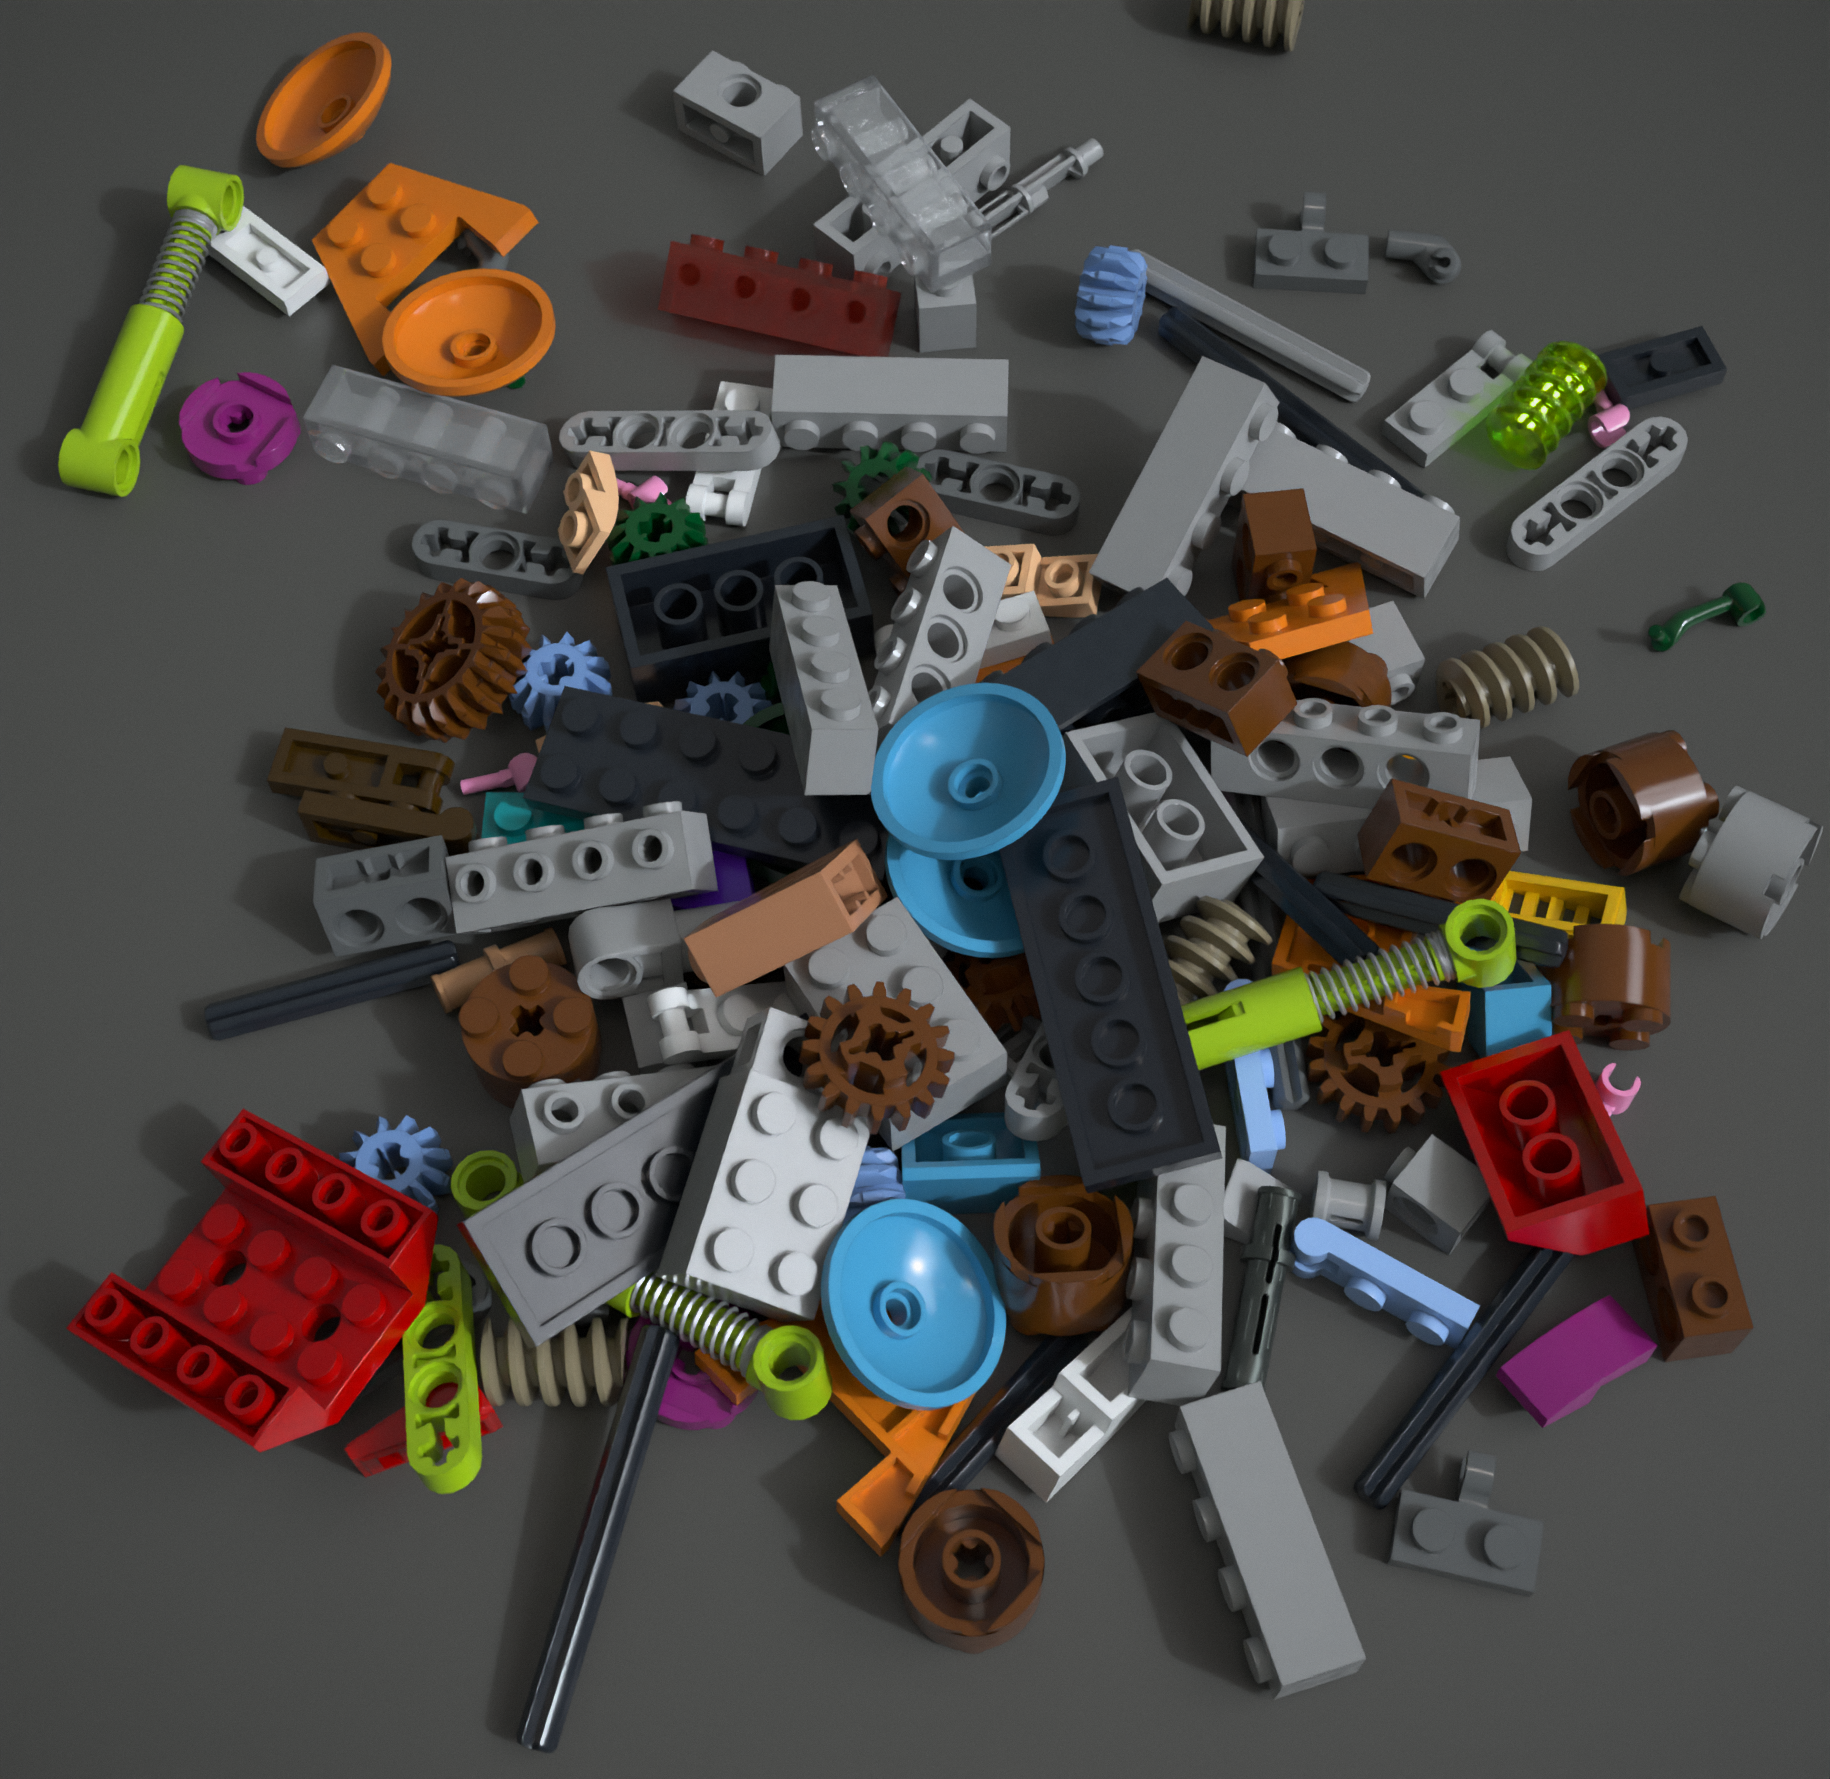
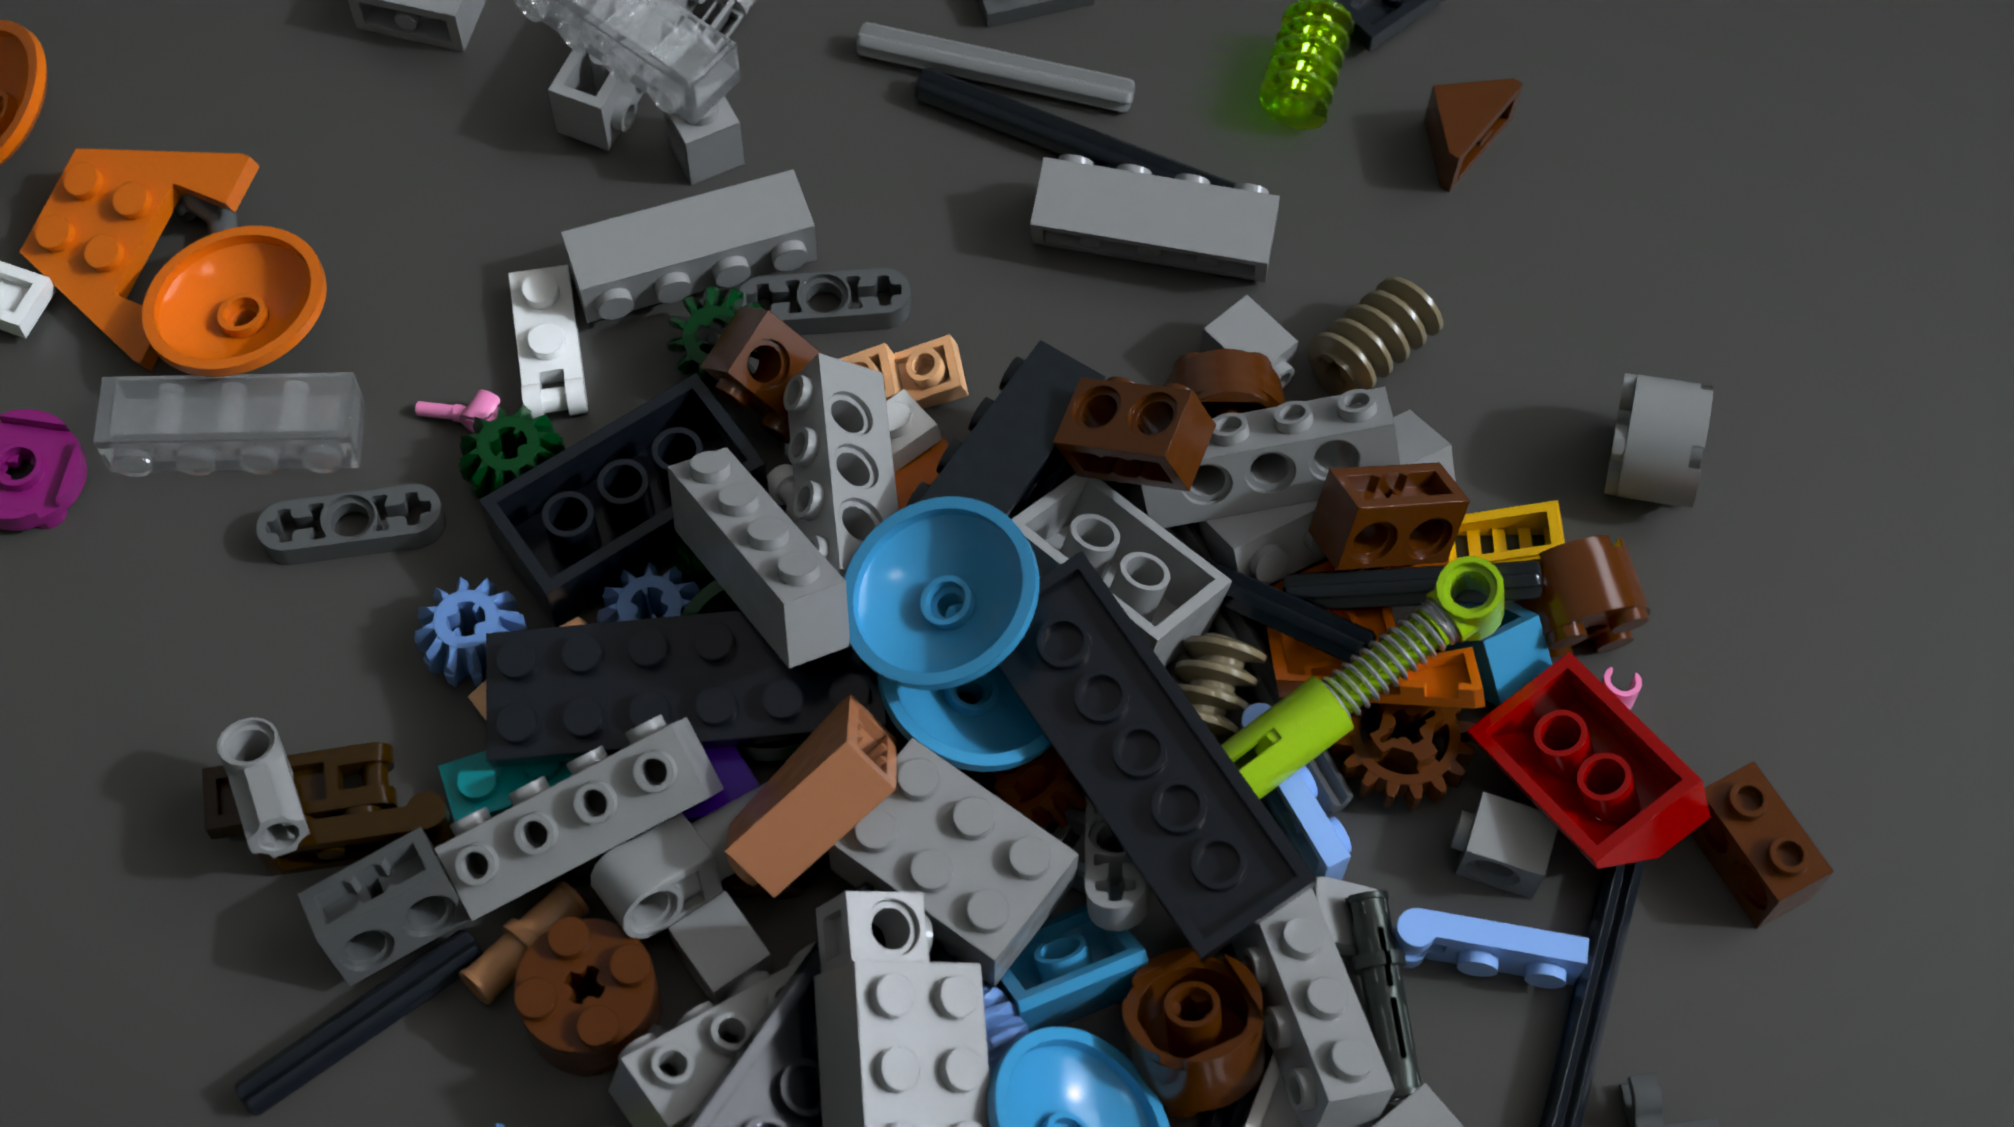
camera: 25 degrees left, 0 degrees up
(321, 755) = (262, 786): none -> light grey piece
(453, 660) = (355, 644): reddish brown gear -> none
(517, 774) = (466, 732): bright pink hand -> none
(592, 511) = (435, 444): light nougat slope -> none
(716, 1021) = (770, 928): white plate -> none
(747, 447) = (483, 340): light grey beam -> none
(779, 299) = (537, 173): clear red brick -> none
(867, 1082) = (969, 933): reddish brown gear -> none
(1111, 295) = (862, 75): medium blue gear -> none
(1187, 480) = (1016, 241): light grey brick -> none
(1273, 545) = (1120, 285): reddish brown brick -> none
(1310, 618) = (1185, 334): orange wing -> none
(1349, 1204) = (1429, 883): light grey bush -> none
(1454, 400) = (1220, 82): light grey plate -> none
(1575, 1360) = (1686, 957): magenta slope -> none
(1592, 489) = (1382, 133): light grey beam -> none
(1608, 423) = (1367, 62): bright pink hand -> none
(1640, 802) = (1542, 415): reddish brown brick -> none
(1685, 506) = (1465, 121): none -> reddish brown slope
(1737, 599) = (1546, 196): dark green piece -> none

